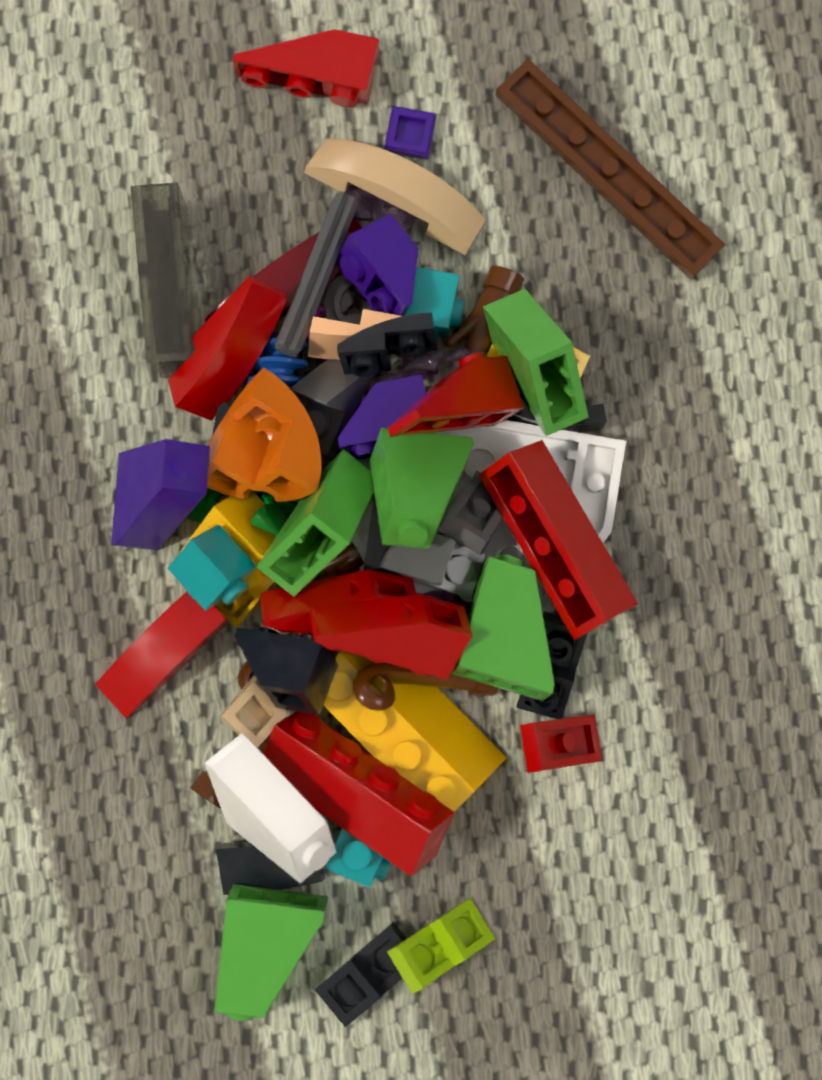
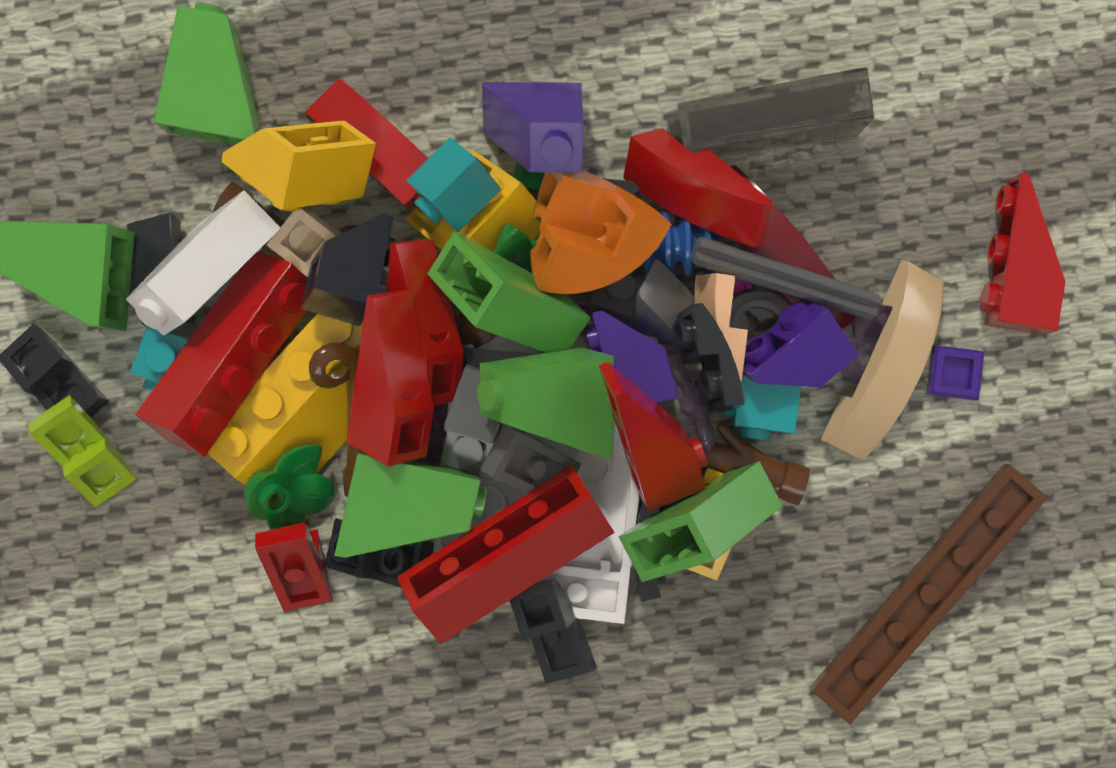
camera: 85 degrees right, 5 degrees up
(91, 807) = (206, 79): none -> bright green slope
(182, 708) = (304, 163): none -> yellow slope
(488, 742) = (290, 488): none -> green plate
(631, 505) = (556, 633): none -> black slope

